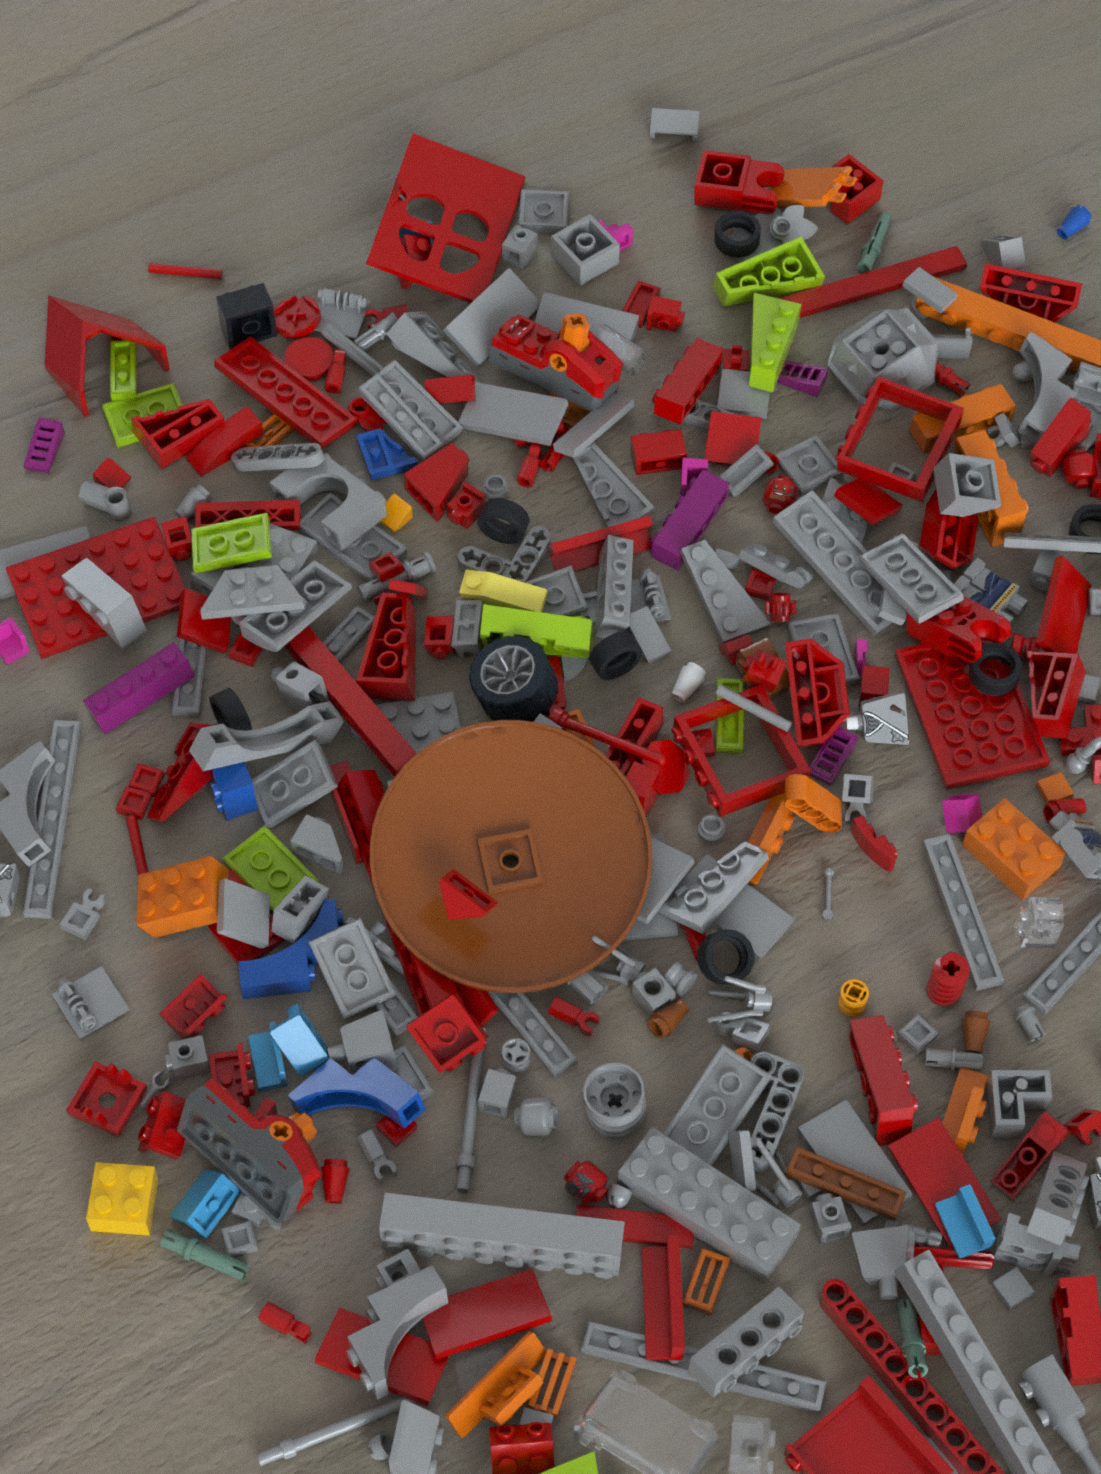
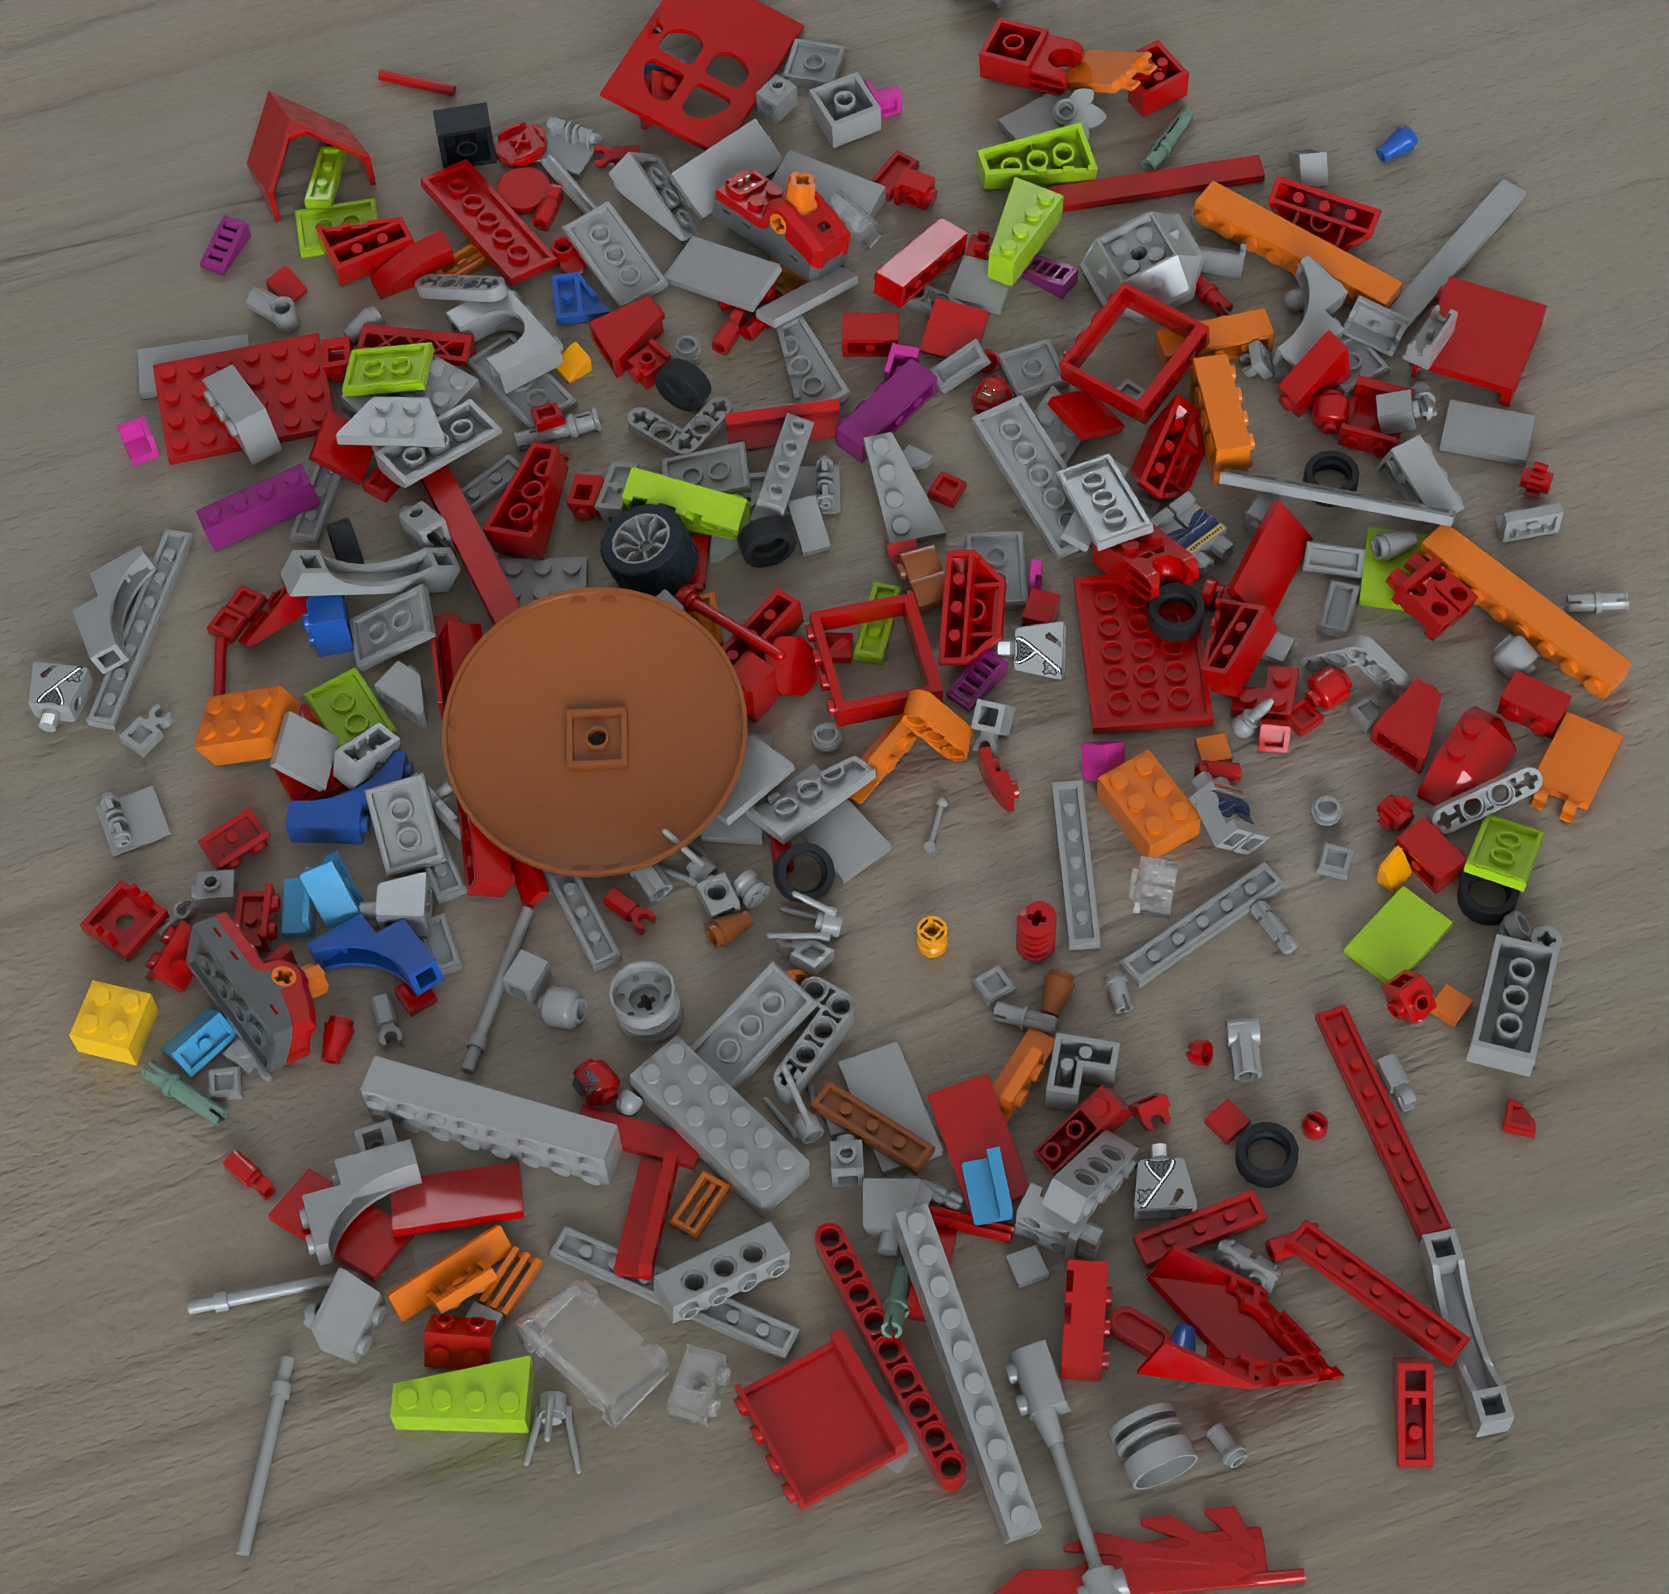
camera: 15 degrees right, 0 degrees up
(376, 332) = (598, 172): light grey axle -> none
(400, 417) = (600, 261): light grey tile -> none
(408, 587) = (561, 440): red tile -> none
(448, 1033) = (487, 906): red plate -> none
(452, 389) = (664, 240): red tile -> none
(464, 898) = (532, 766): red slope -> none
(502, 591) = (662, 458): light yellow slope -> none
(515, 1048) = (555, 934): light grey wheel -> none
(688, 681) = (841, 580): white cone -> none
(737, 219) = (1015, 97): black tyre -> none
(742, 1159) = (766, 1084): light grey tile -> none
(753, 708) = (896, 615): light grey bar -> none
(763, 670) = (918, 577): red brick -> none
(776, 565) = (967, 471): light grey hinge -> none
(780, 607) = (960, 515): red gear -> none
(882, 1078) = (940, 1023): red wedge -> none
(930, 290) = (1208, 197): light grey tile -> none
(966, 485) = (1188, 409): light grey slope -> none

